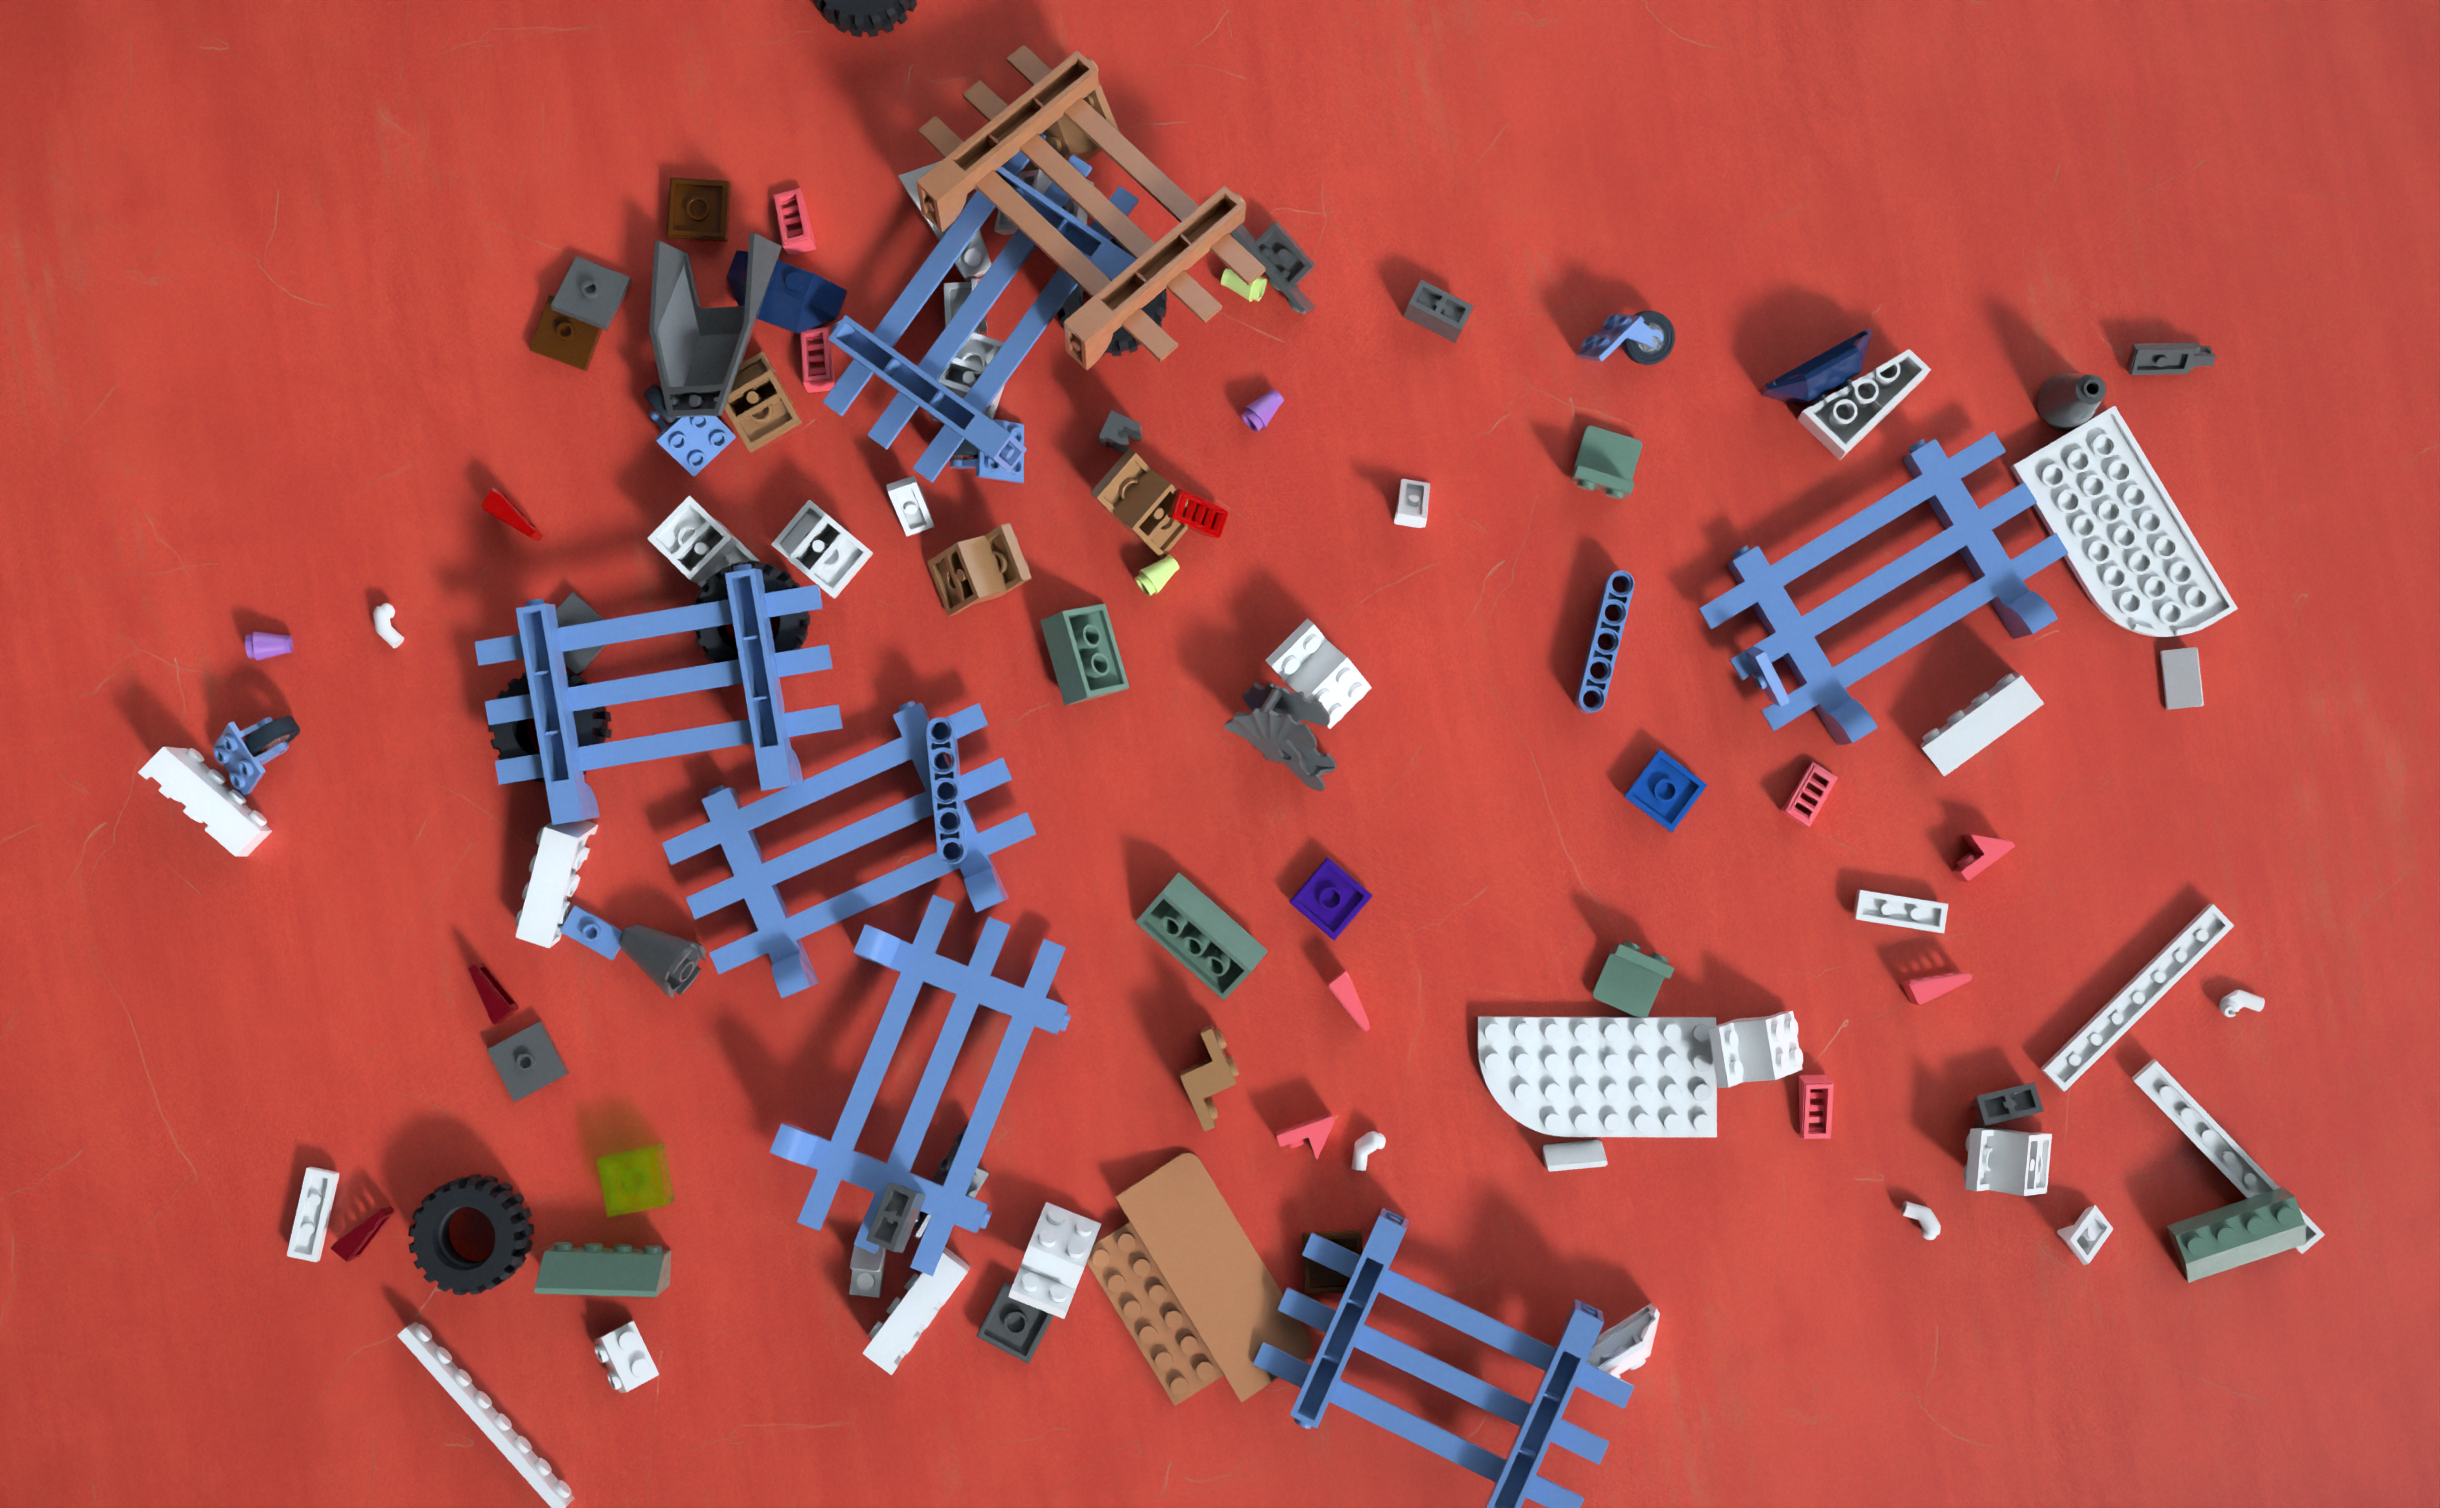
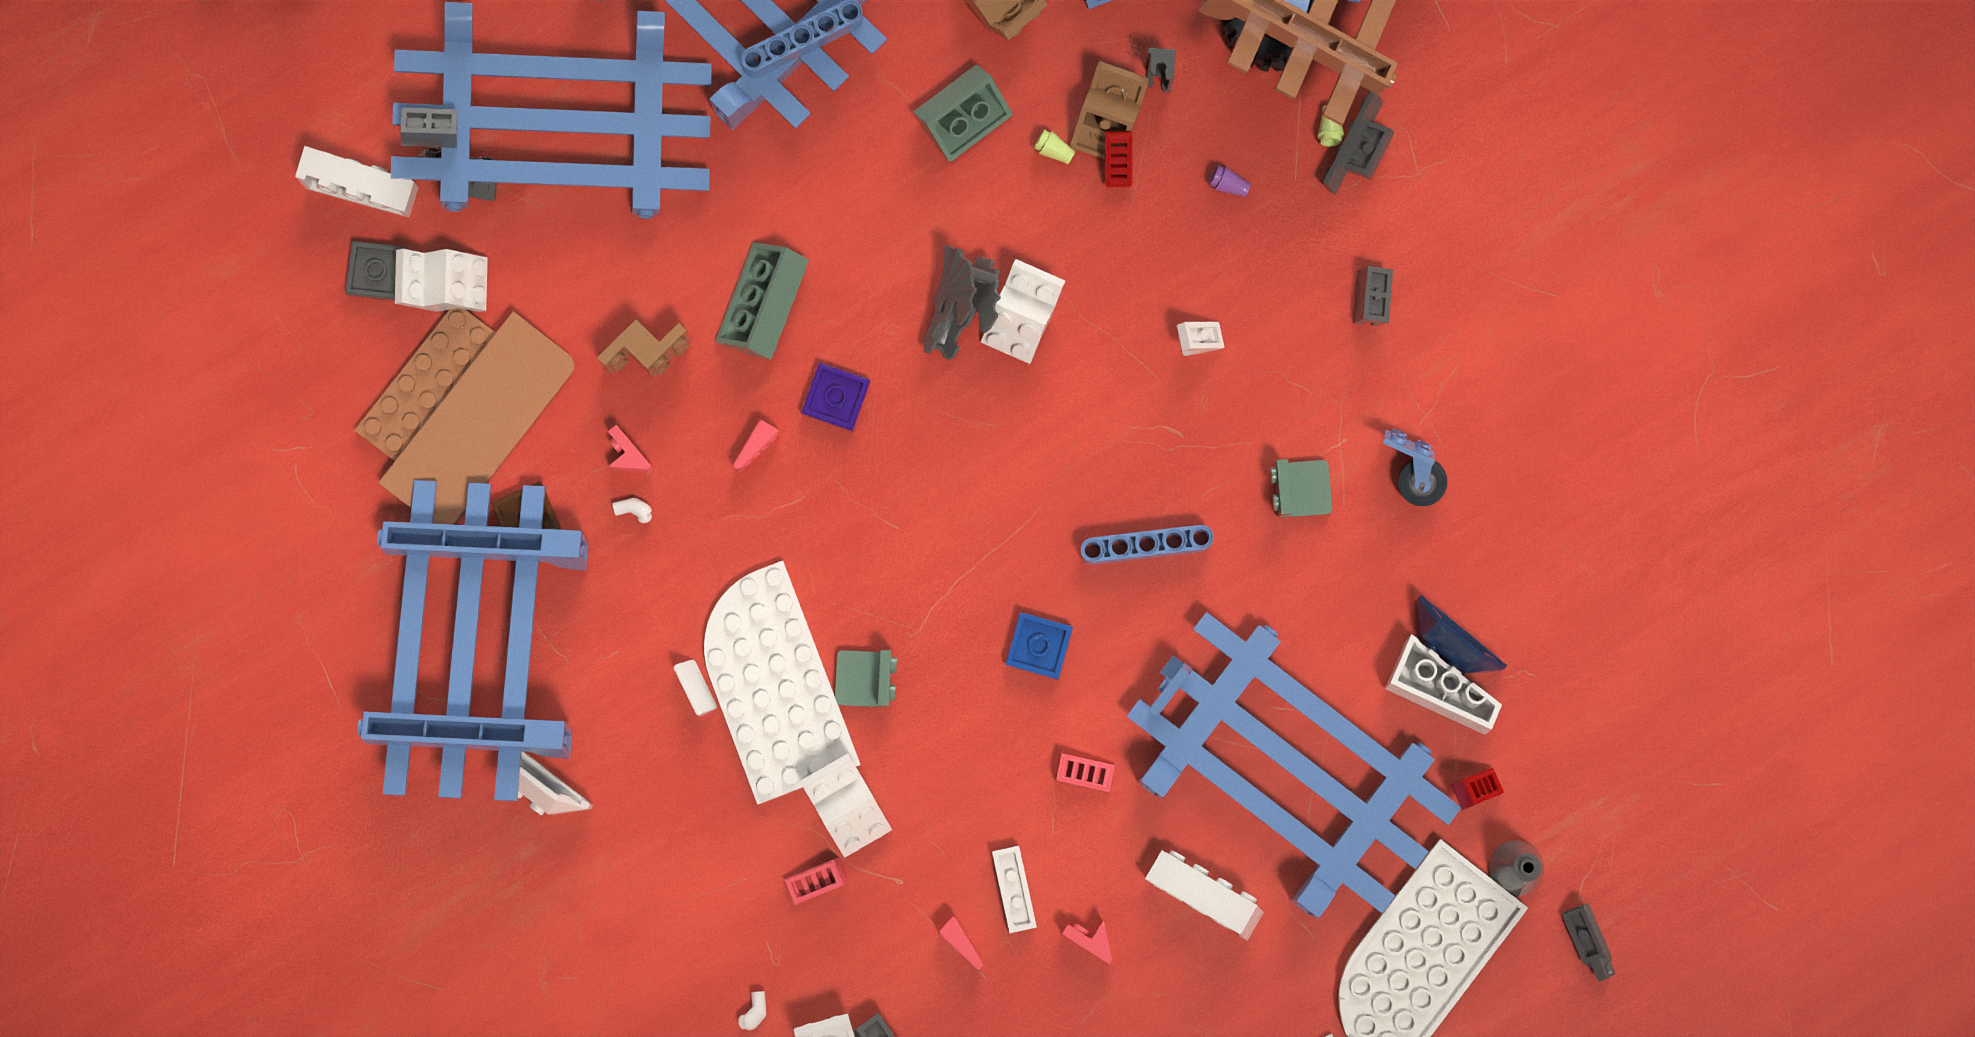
camera: 60 degrees right, 5 degrees down
(867, 1272) = (374, 131): white slope -> none
(1979, 422) = (1465, 793): none -> red slope

